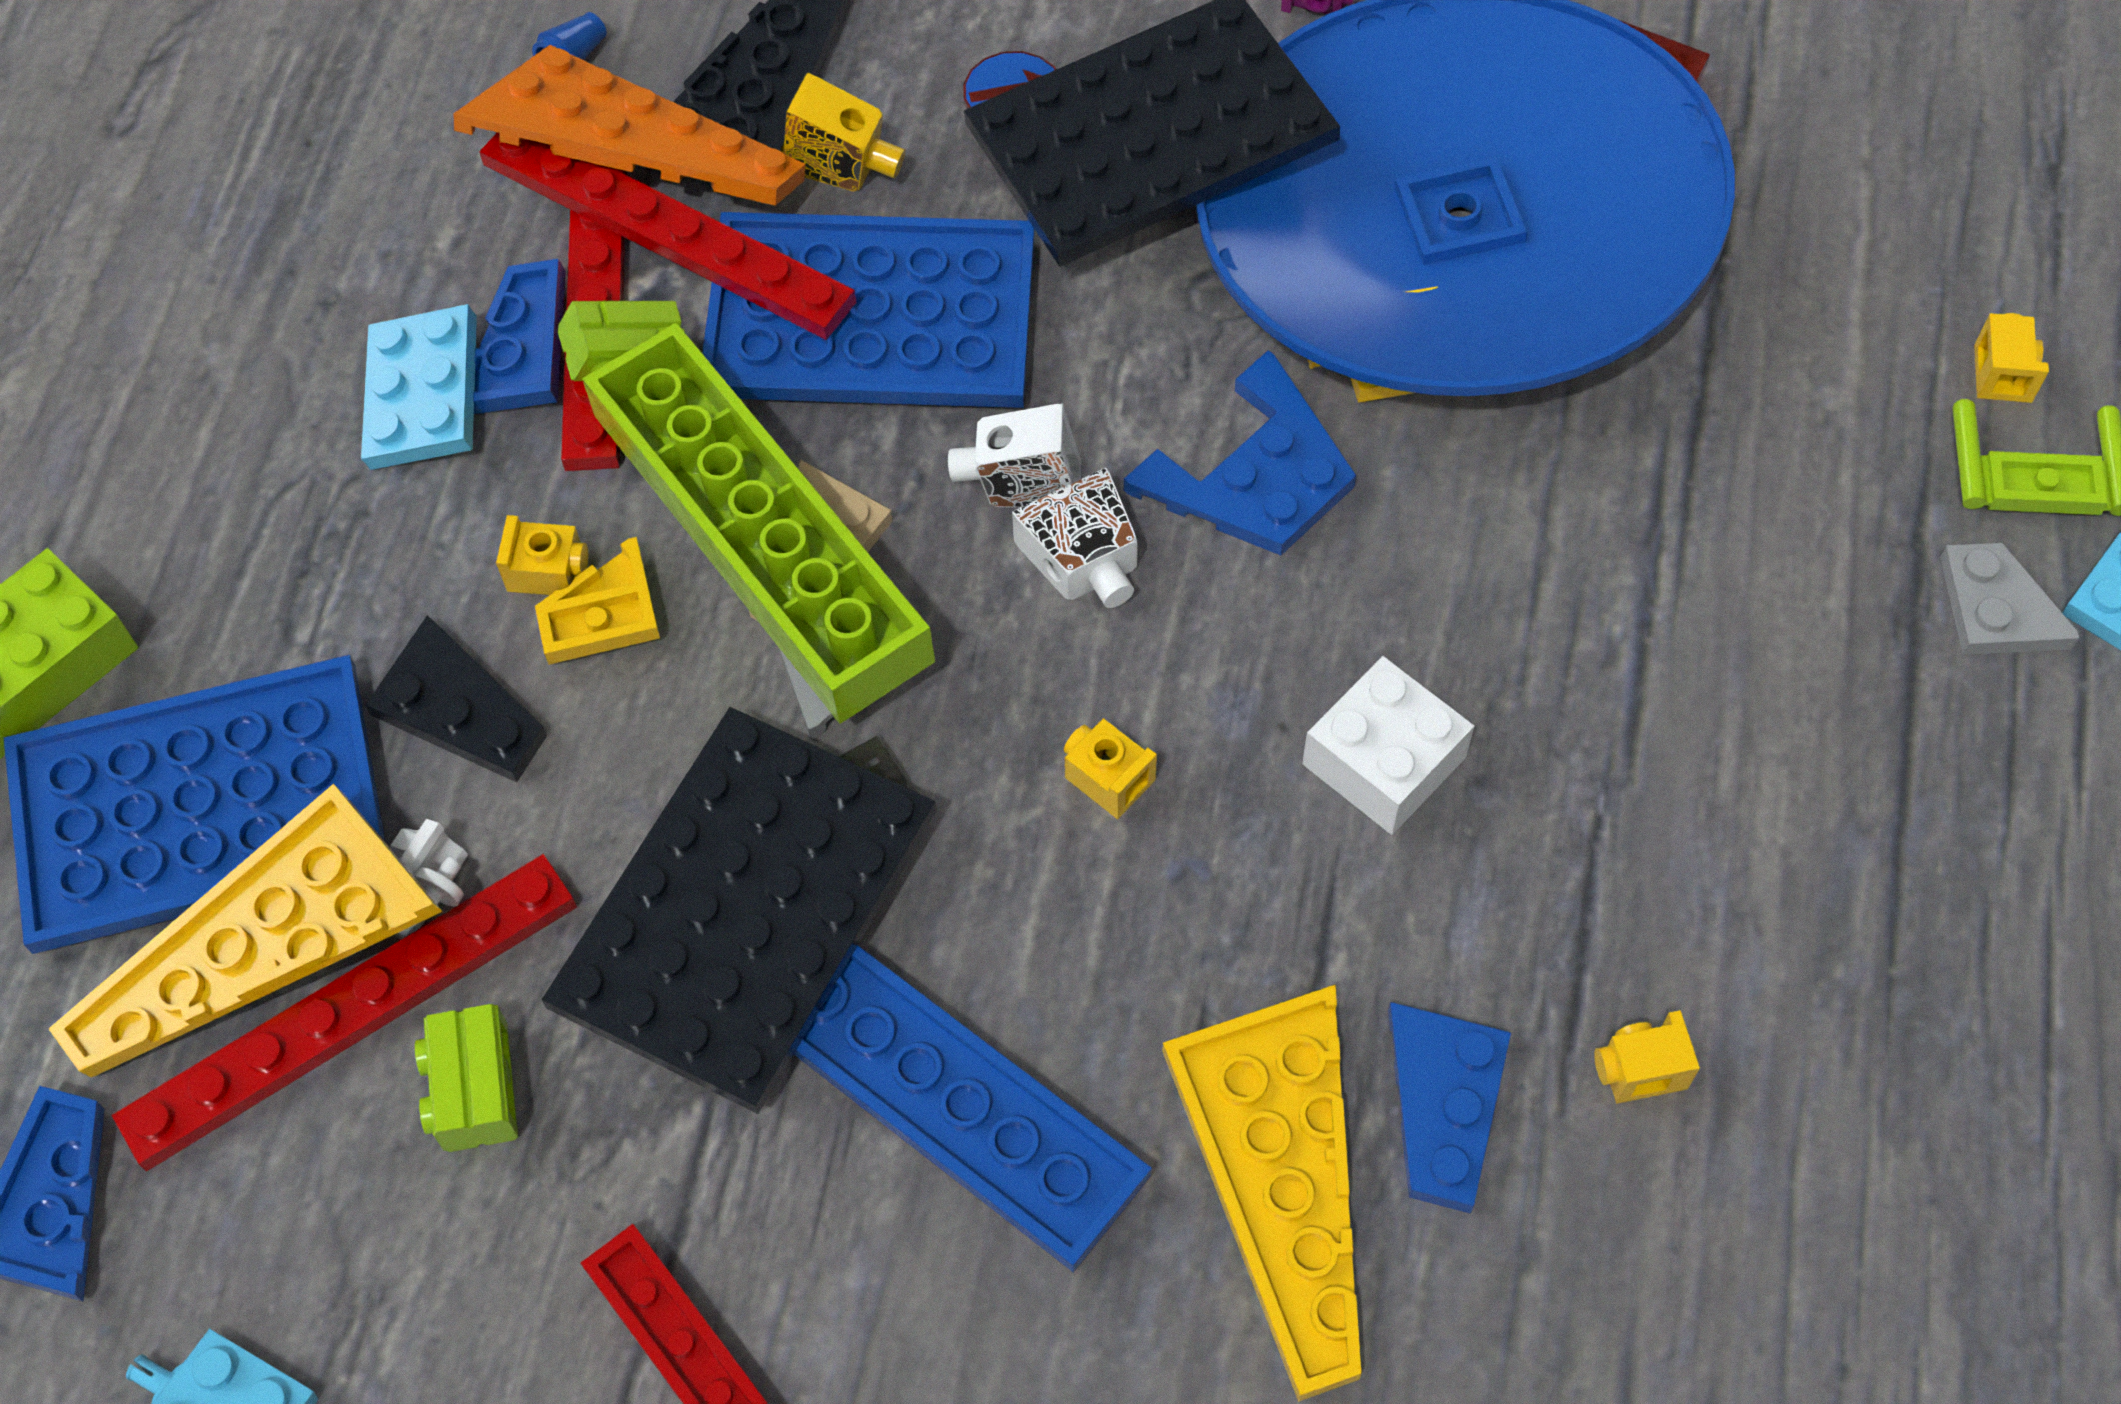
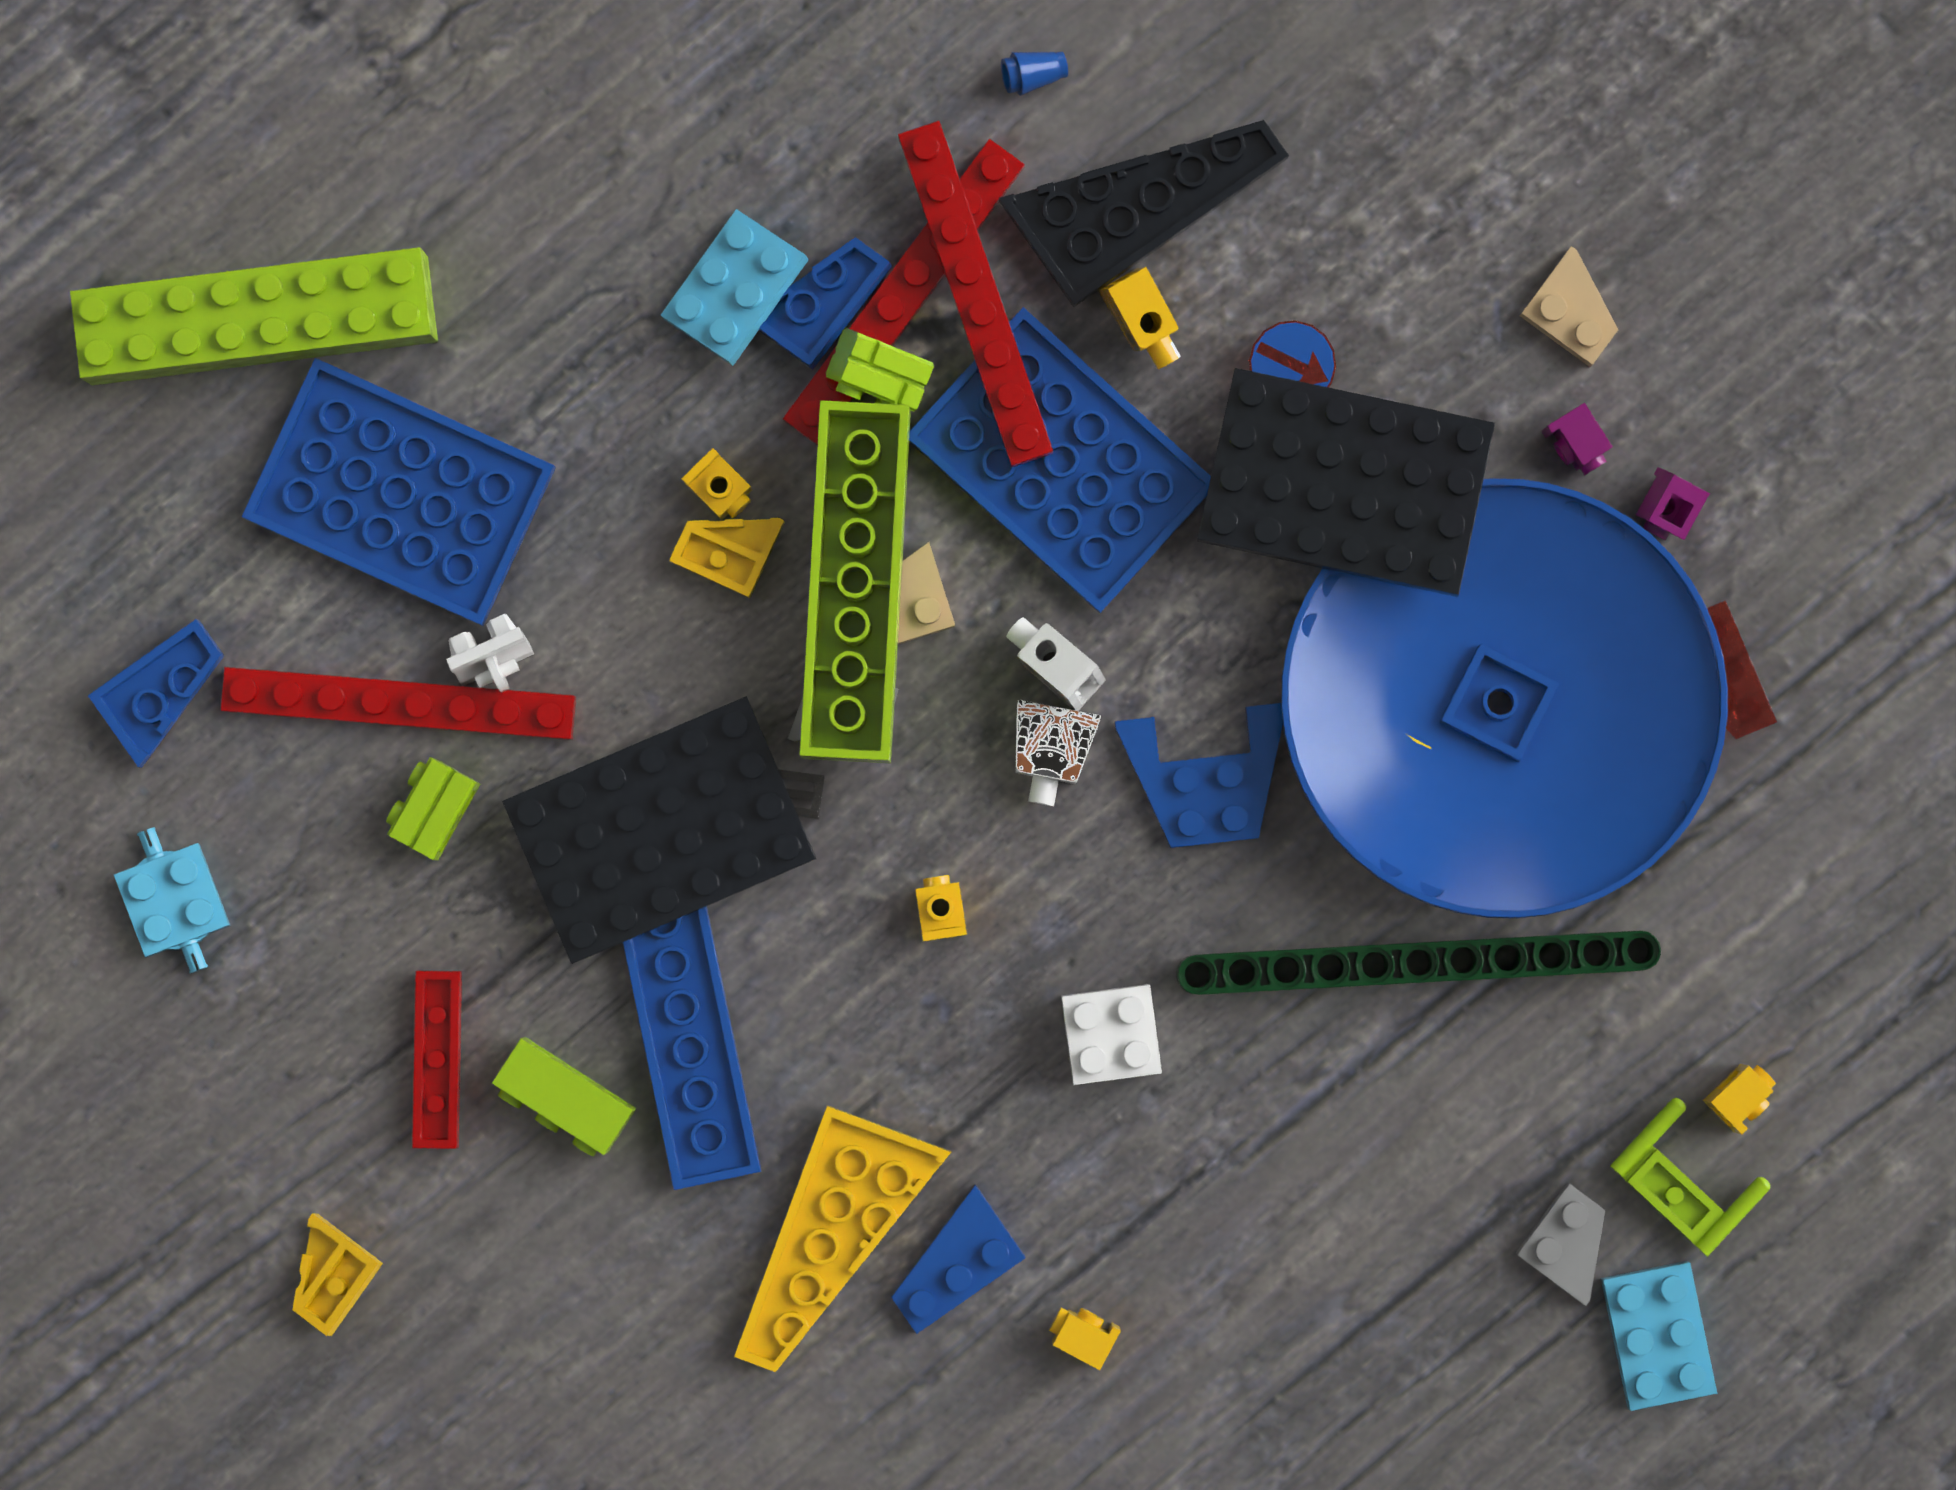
camera: 40 degrees right, 25 degrees up
(280, 915) = (393, 625): yellow wing -> none
(456, 705) = (596, 546): black wing -> none
(620, 125) = (998, 181): orange wing -> none
(862, 1267) = (563, 1097): none -> lime brick
(1706, 385) = (1439, 965): none -> dark green beam

